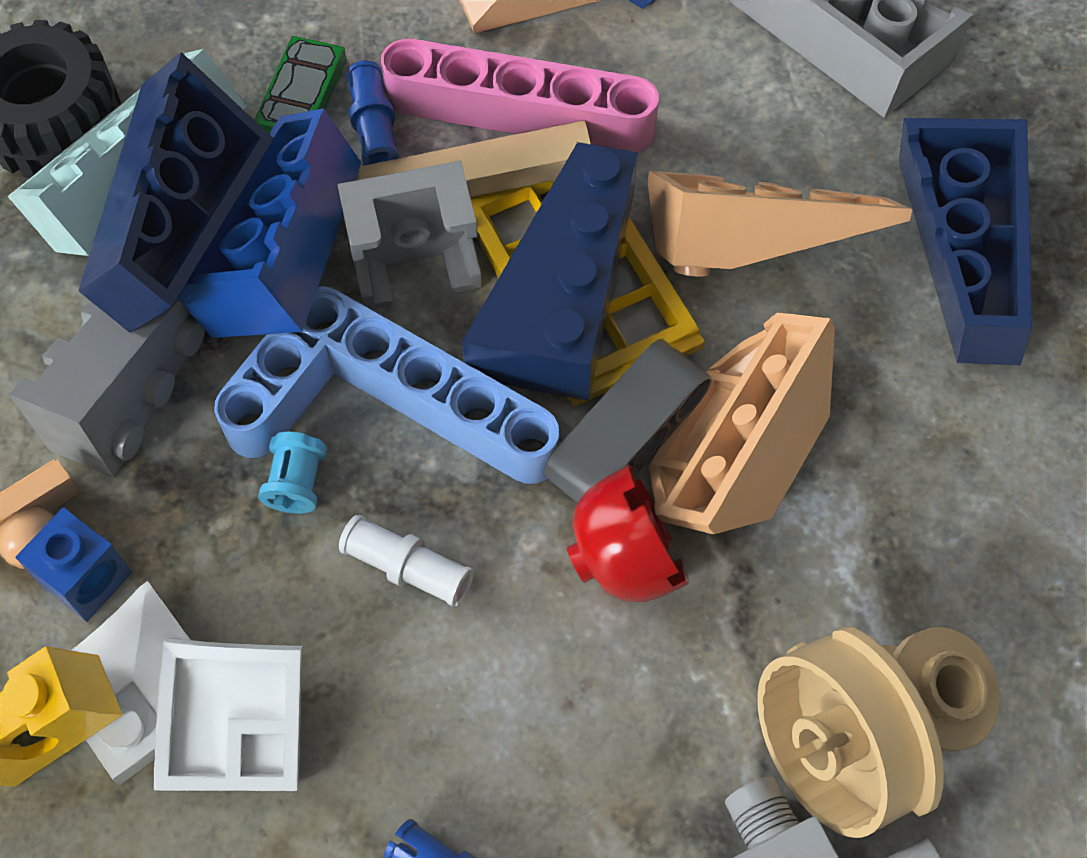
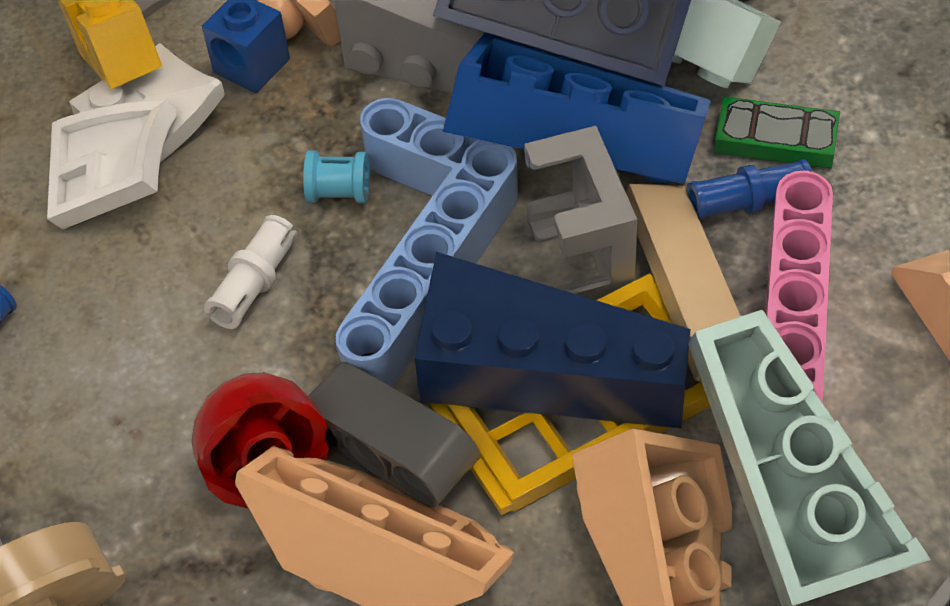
camera: 90 degrees right, 10 degrees down
(711, 94) = (800, 479): none -> light aqua wedge

